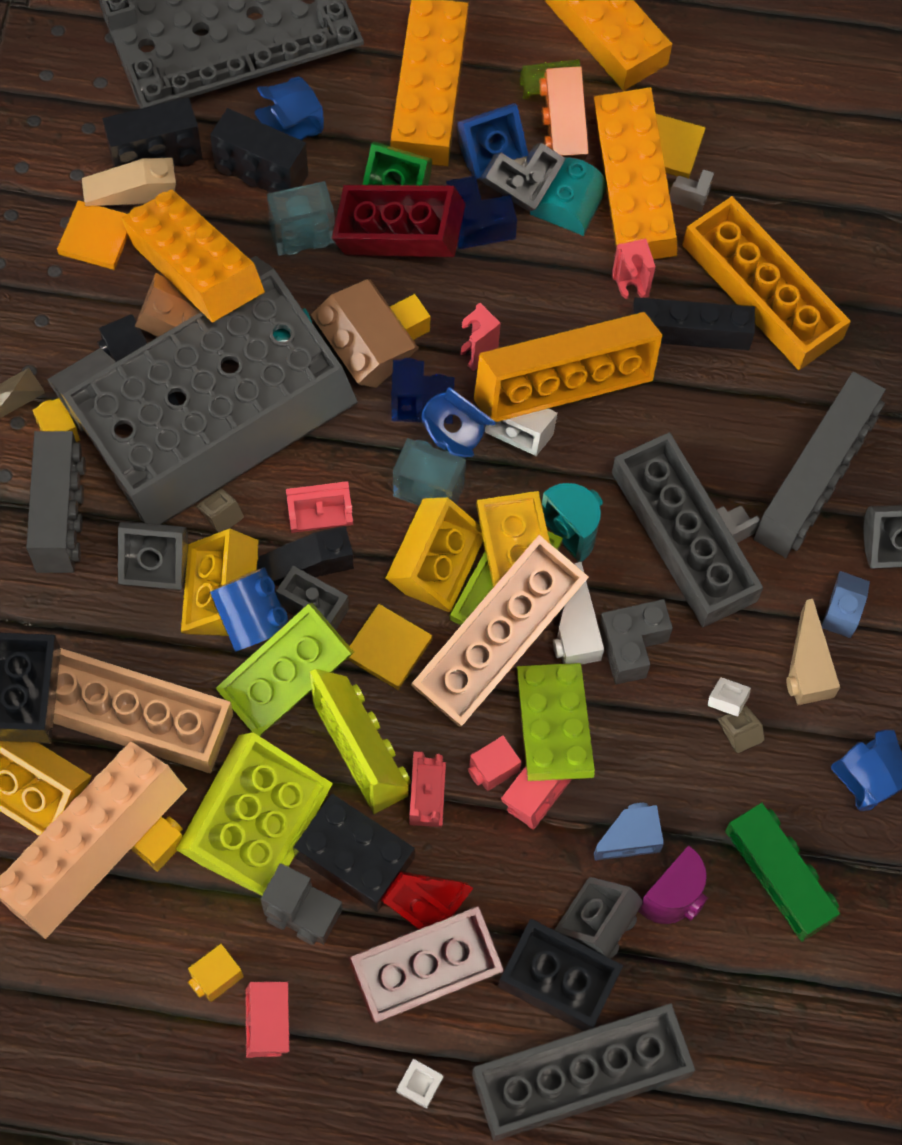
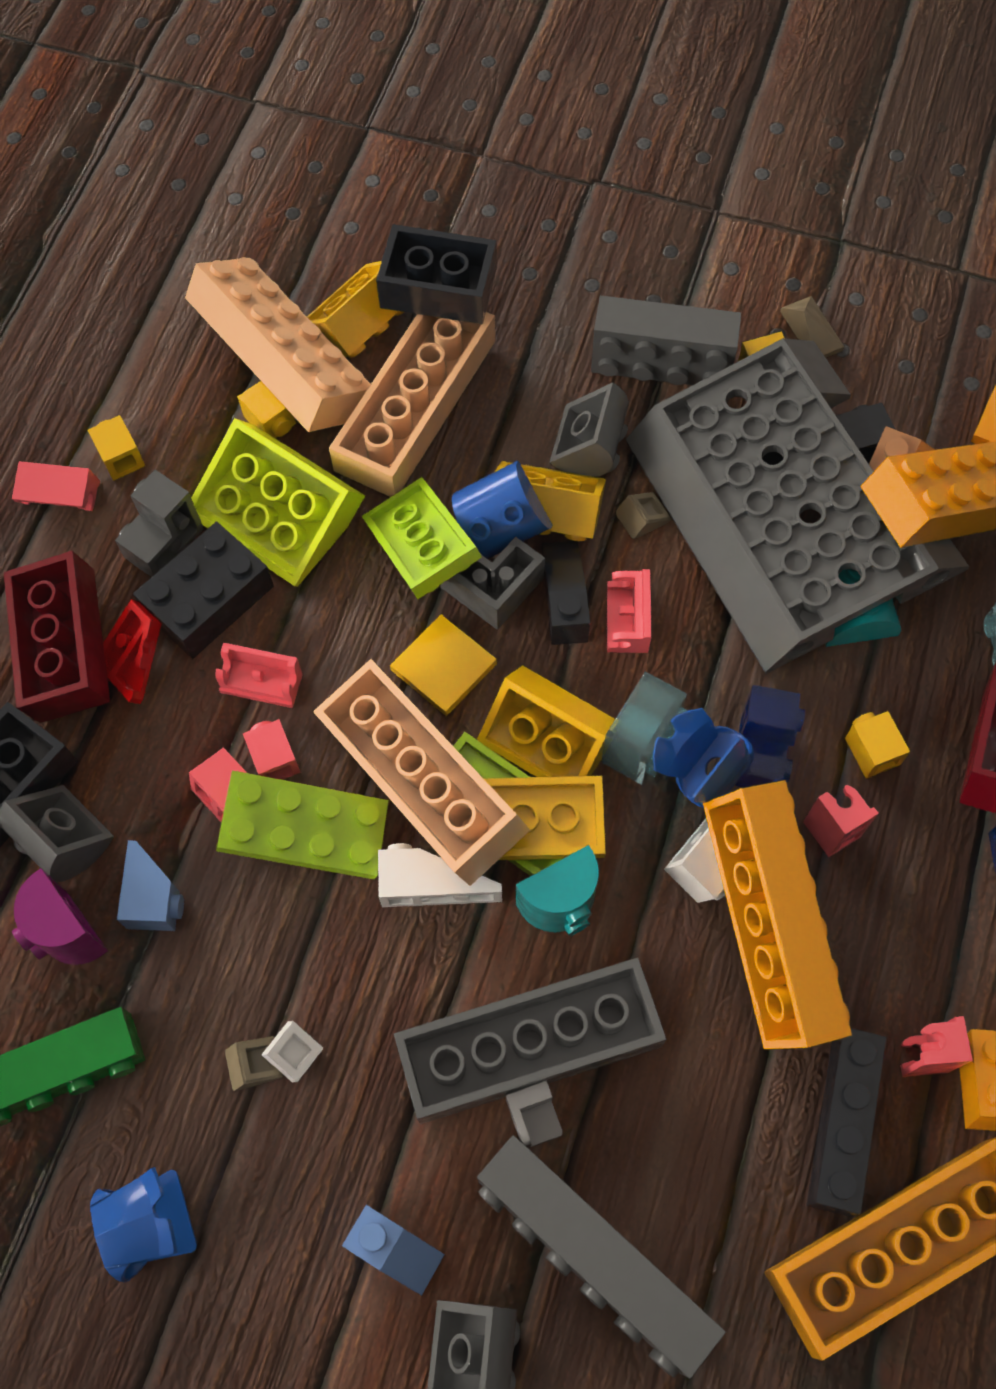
camera: 105 degrees right, 0 degrees up
(358, 740) = (322, 595): neon yellow slope -> none
(364, 332) = (857, 683): medium nougat slope -> none
(628, 633) = (397, 933): dark grey brick -> none
(811, 668) = (309, 1172): tan slope -> none

